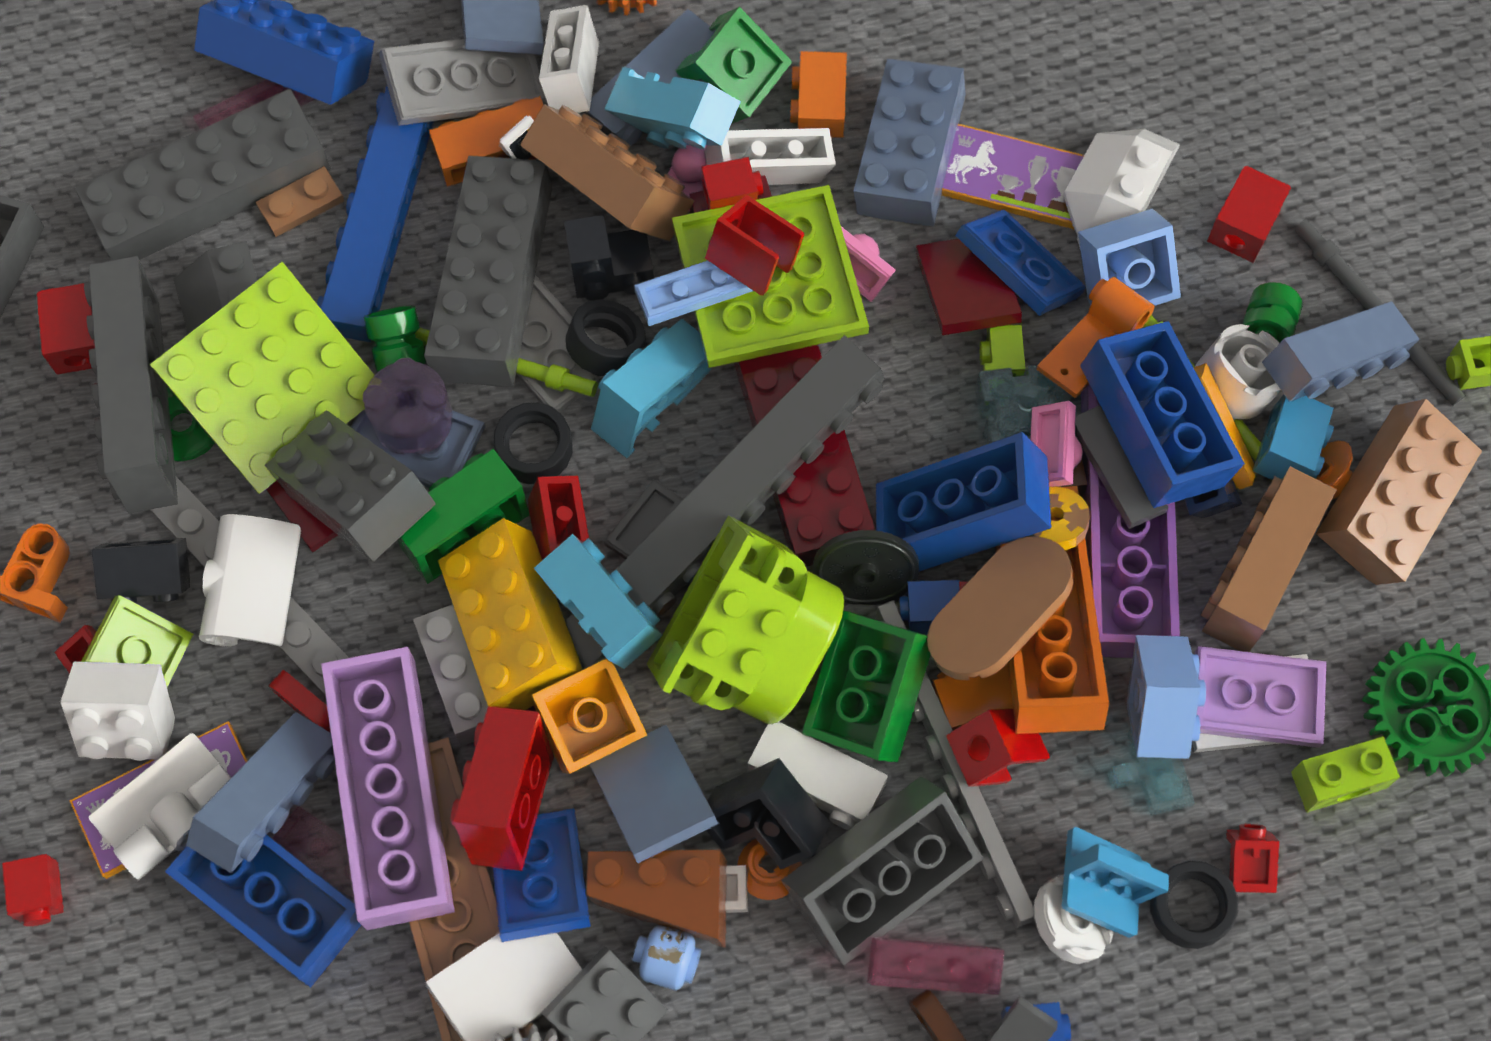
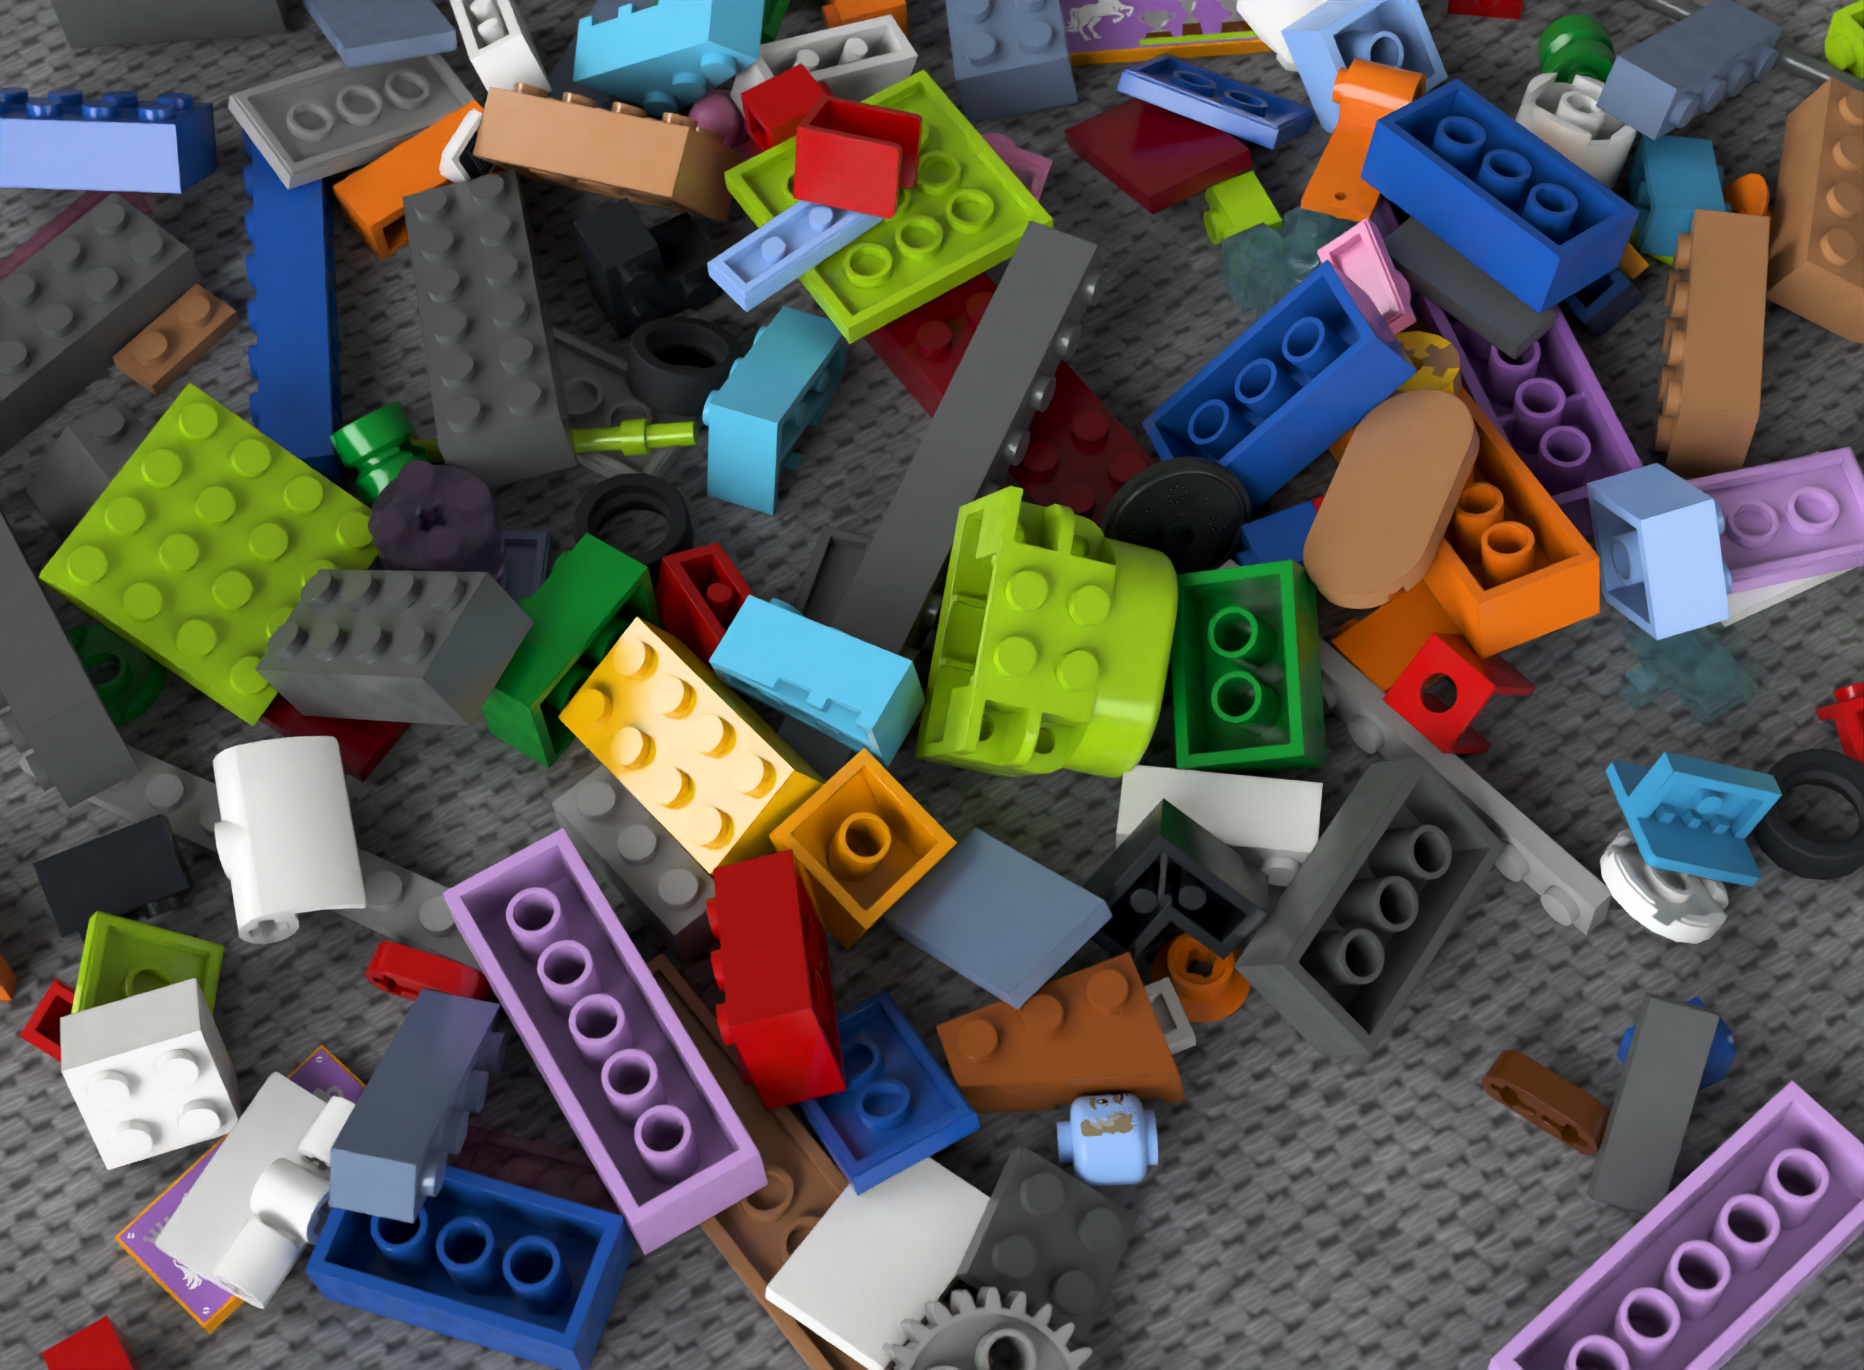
camera: 15 degrees left, 10 degrees down
(935, 966) = (1499, 1014): clear pink tile -> none

